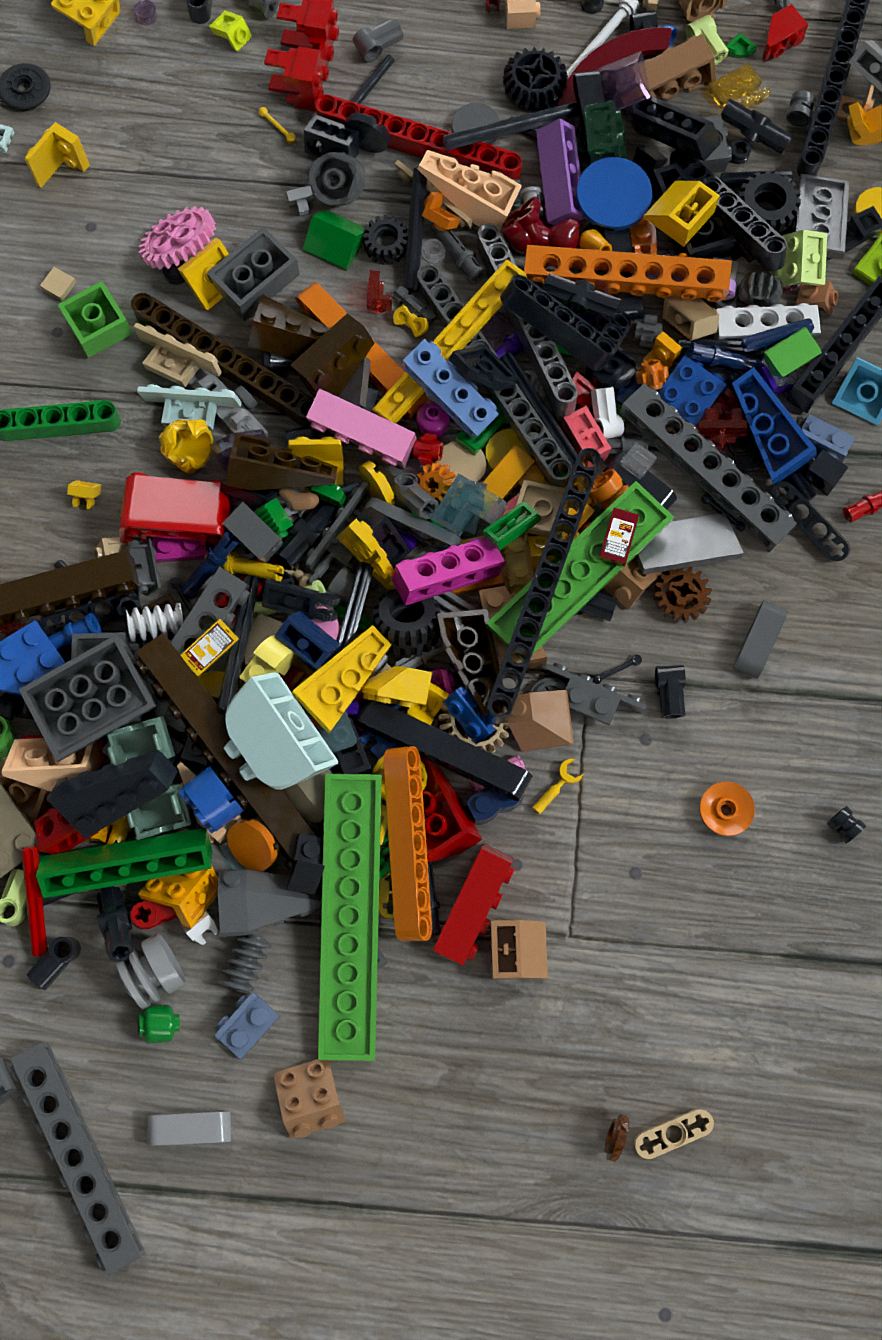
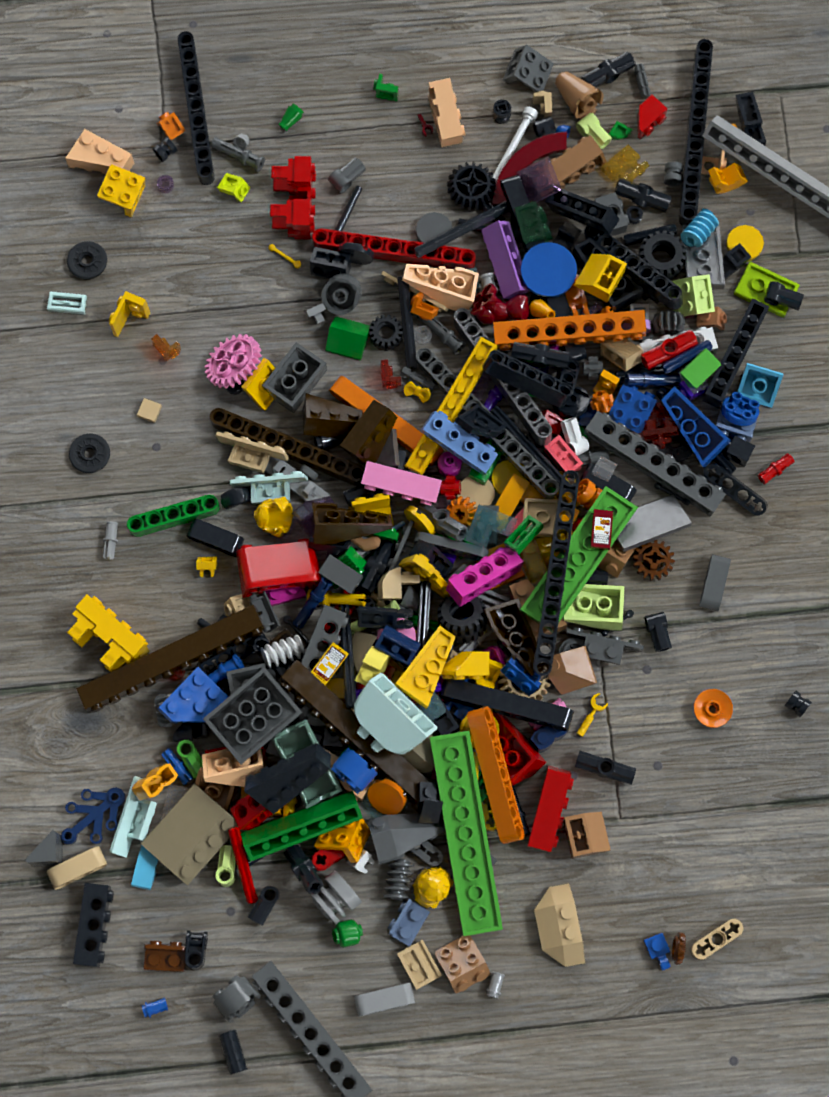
camera: 10 degrees left, 0 degrees up
(95, 319) = (185, 434): bright green brick -> none
(99, 213) = (164, 348): none -> clear orange bracket
(102, 457) = (215, 537): none -> black beam
(142, 411) = (235, 497): none -> black hair
(248, 1088) = (419, 964): none -> tan plate
(287, 935) = (426, 858): none -> dark grey beam
(290, 981) = (432, 886): none -> yellow helmet
(319, 556) = (390, 584): none -> tan brick
(348, 1138) = (495, 985): none -> light grey pin
(455, 1072) = (560, 926): none -> tan wedge
(579, 871) = (618, 771): none -> black piece
(586, 1130) = (657, 948): none -> blue plate
(594, 642) = (598, 607): none -> yellowish green slope
(767, 316) = (679, 344): none -> red piece
(823, 178) = (699, 229): none -> medium azure piece
(836, 418) = (740, 409): none -> blue tile

